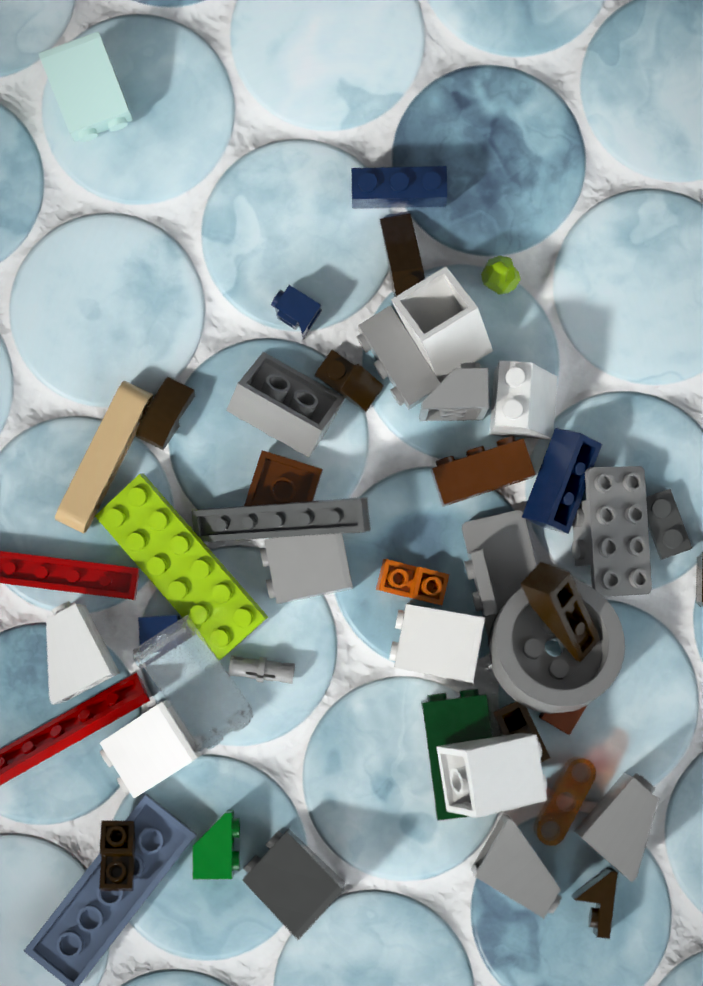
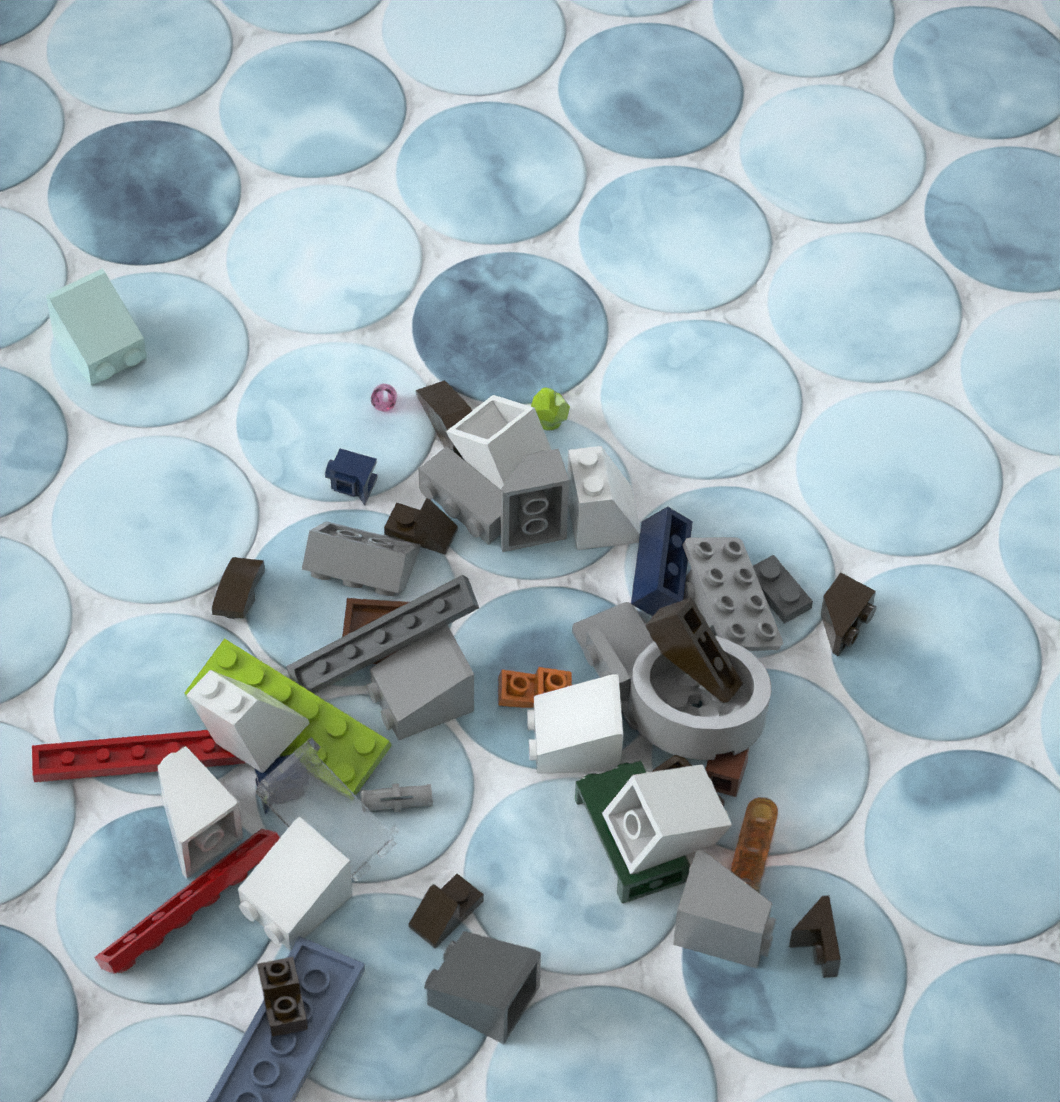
camera: 20 degrees left, 30 degrees down
(103, 457) = (181, 639): tan beam -> none
(137, 582) = (245, 719): none -> white slope
(215, 852) = (388, 975): green slope -> none
(280, 792) = (444, 909): none -> dark brown slope
(341, 226) = (377, 397): none -> clear pink hinge
(399, 187) = (428, 356): dark blue brick -> none
(482, 471) = (579, 575): reddish brown brick -> none
(622, 823) = (816, 850): light grey slope -> none

